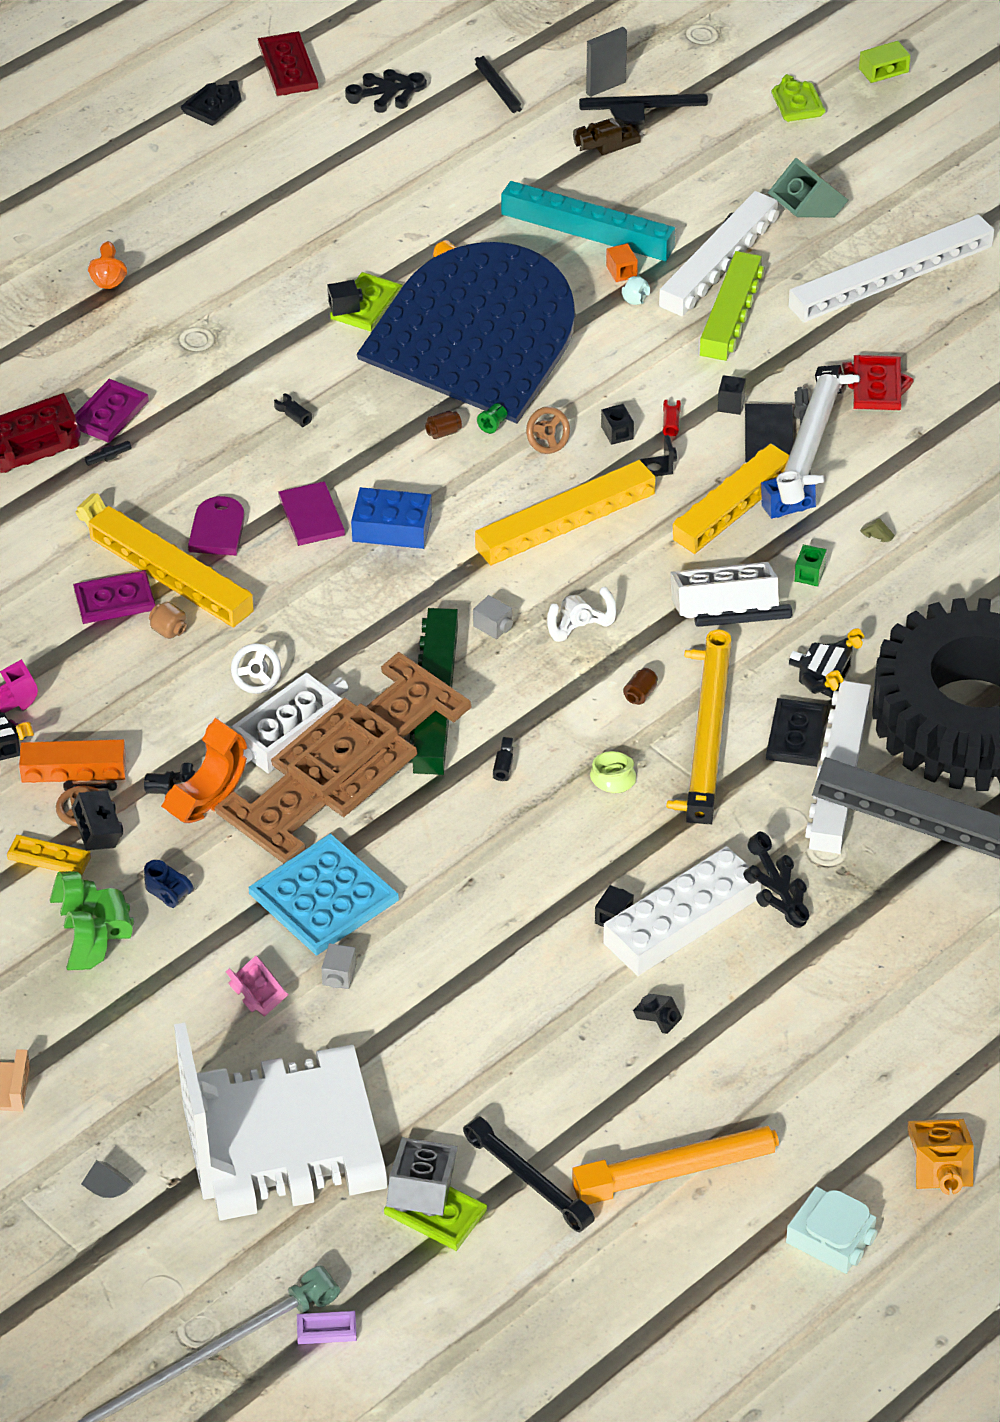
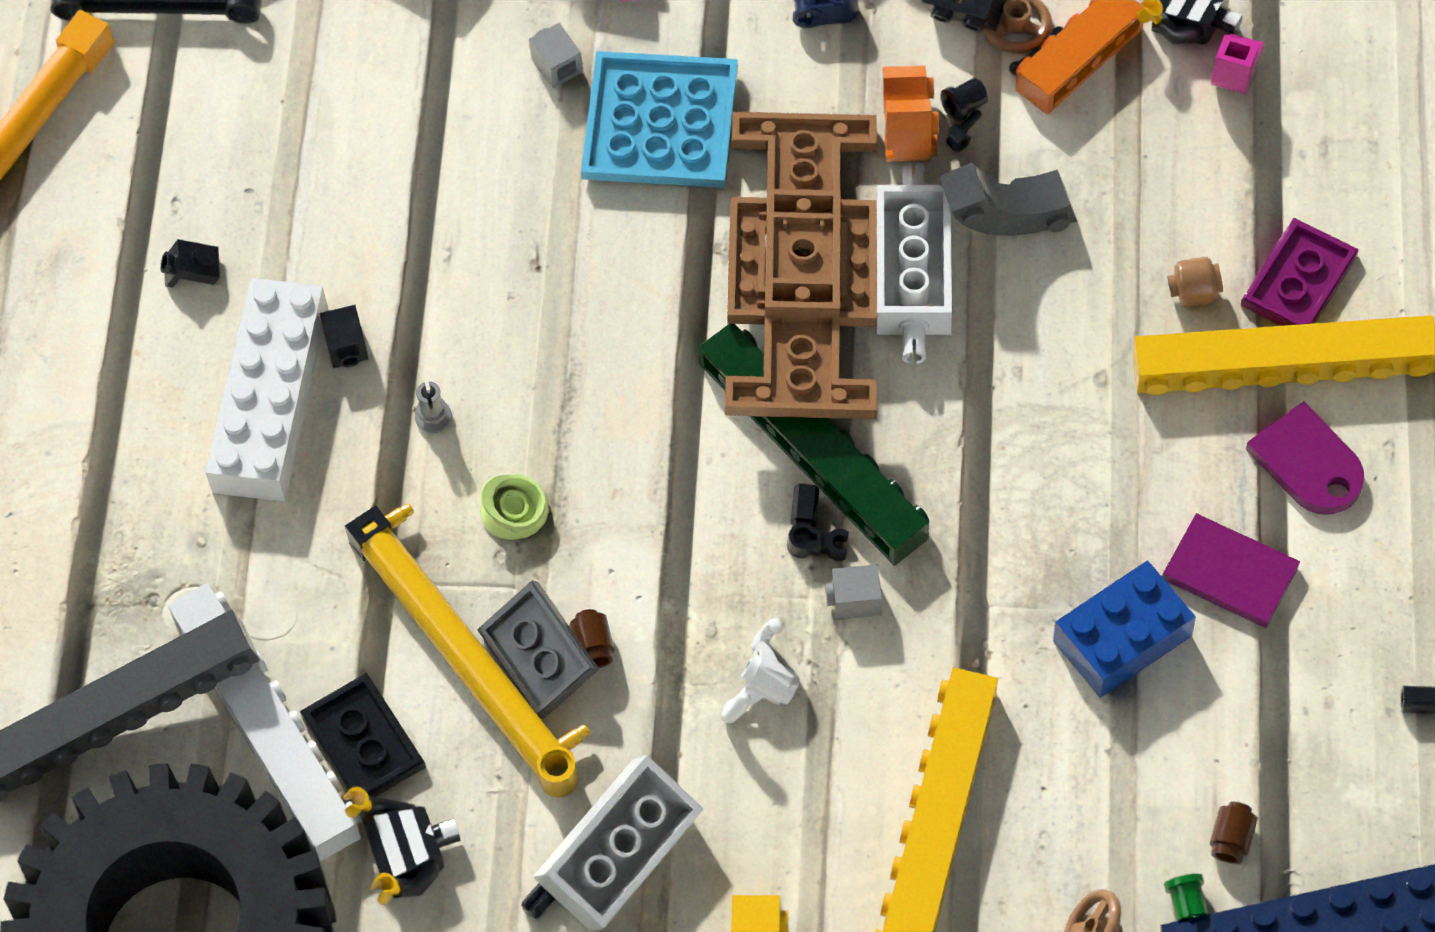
camera: 140 degrees right, 15 degrees up
(199, 709) = (1008, 209): none -> dark grey brick
(262, 675) = (1028, 301): white piece -> none
(486, 660) = (802, 537): none -> black bar
(504, 760) = (645, 422): black bar -> none
(606, 841) = (432, 412): none -> light grey pin
(672, 698) = (538, 649): none -> dark grey tile
(793, 908) = (148, 487): black plant -> none

